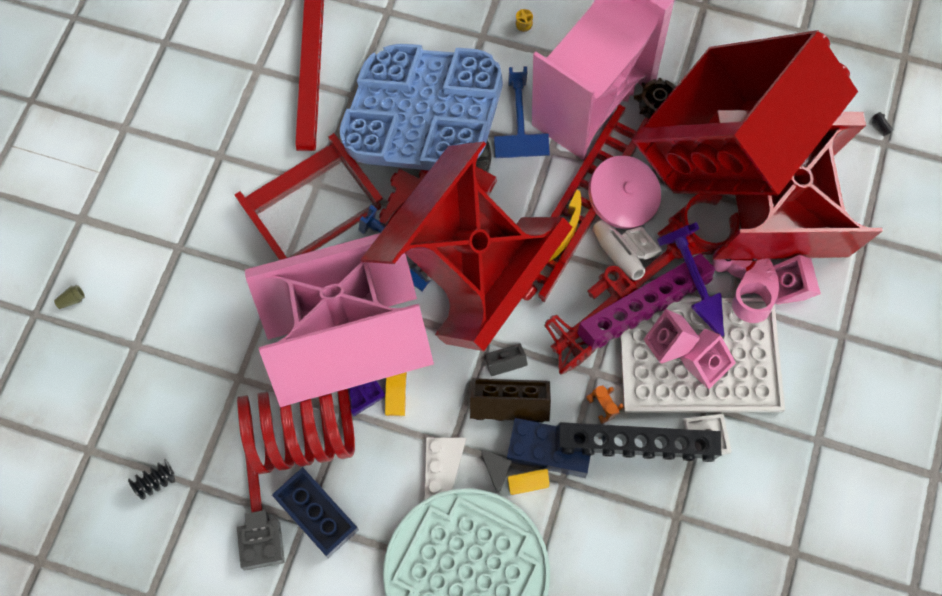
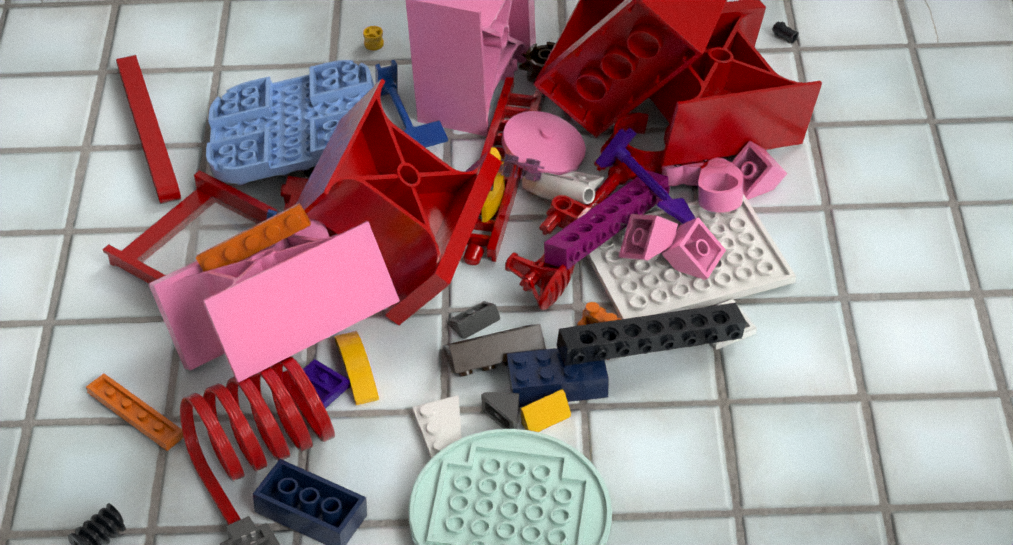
camera: 20 degrees left, 25 degrees down
(214, 365) = (135, 411): none -> orange plate
(333, 268) = (255, 238): none -> orange plate
(592, 224) = (532, 167): none -> clear purple hinge

